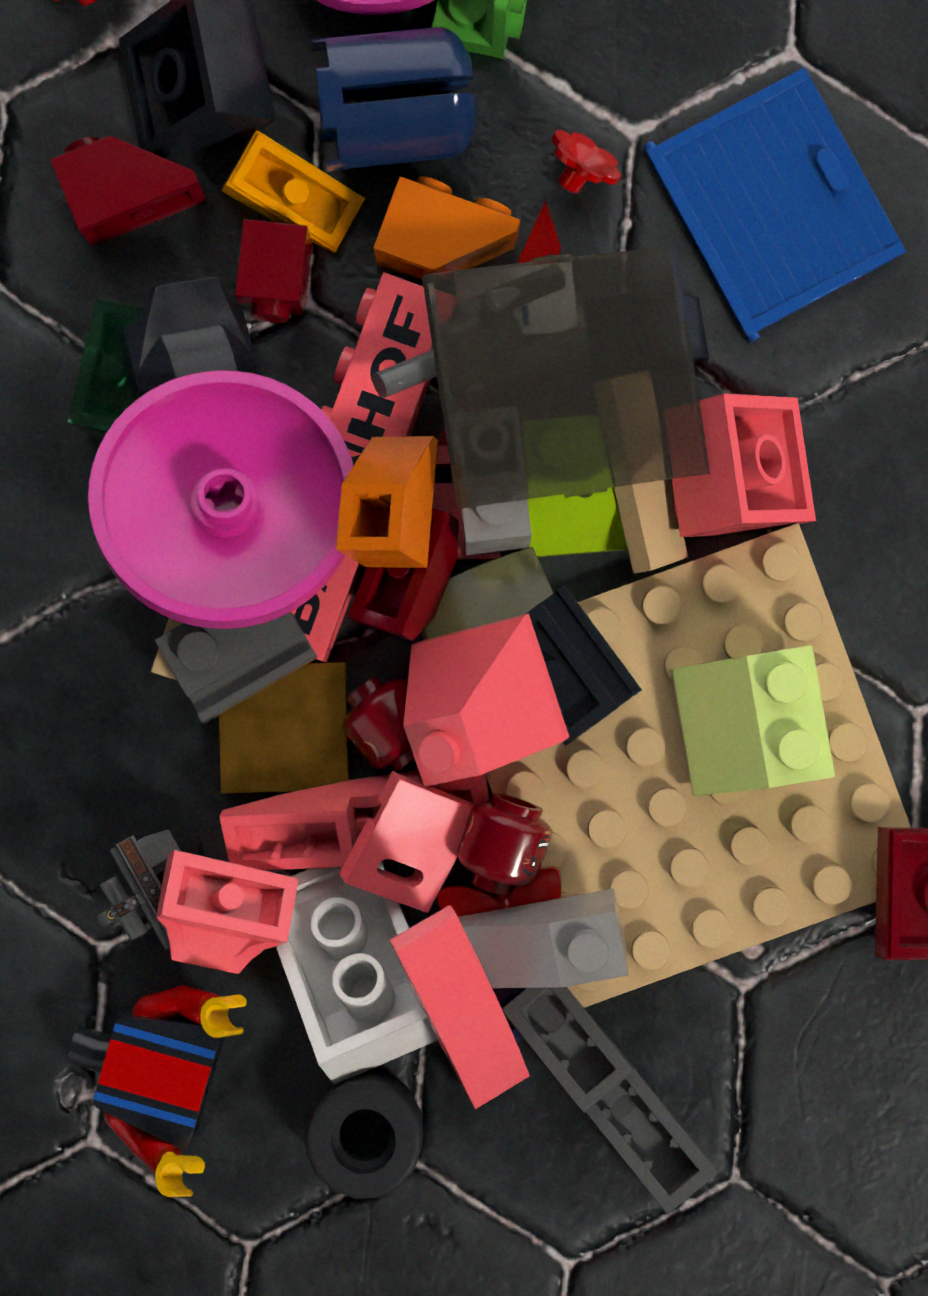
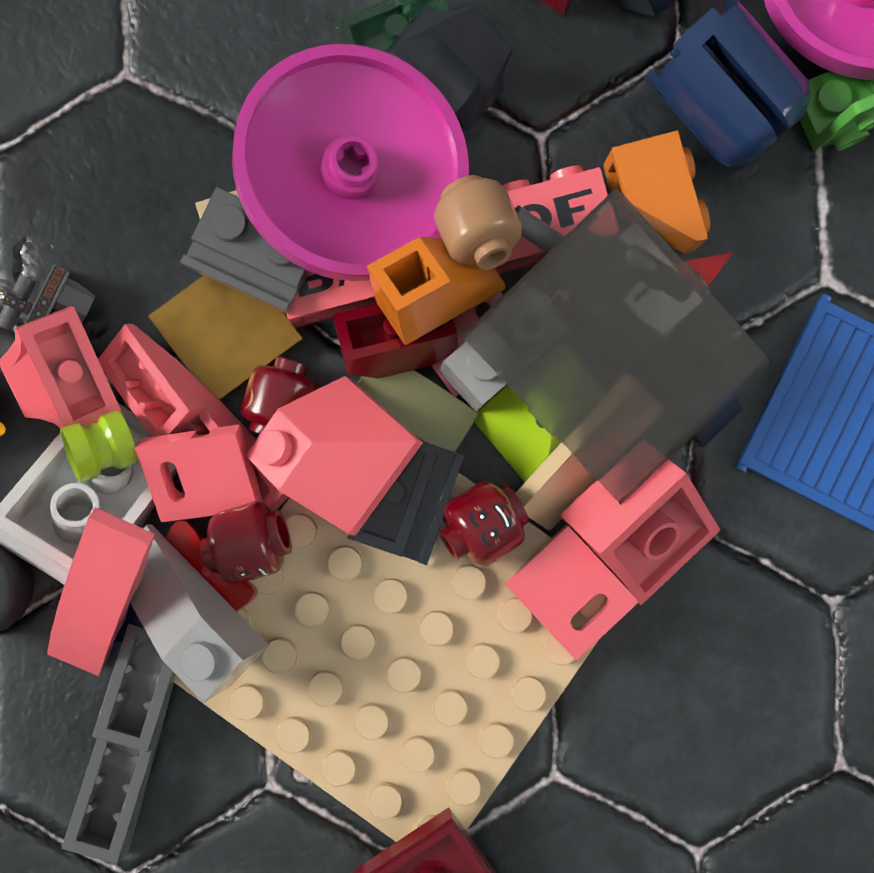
camera: 55 degrees right, 0 degrees up
(274, 270) = (547, 91): dark red brick -> none
(292, 191) = (612, 67): light orange slope -> none
(319, 918) = (99, 446): none -> lime wheel
(364, 422) = (477, 222): none -> medium nougat head
(583, 161) = (782, 257): red plant -> none
(640, 611) = (483, 524): none -> dark red head
(743, 577) = (561, 582): none -> coral piece
(753, 722) = (460, 664): yellowish green slope -> none

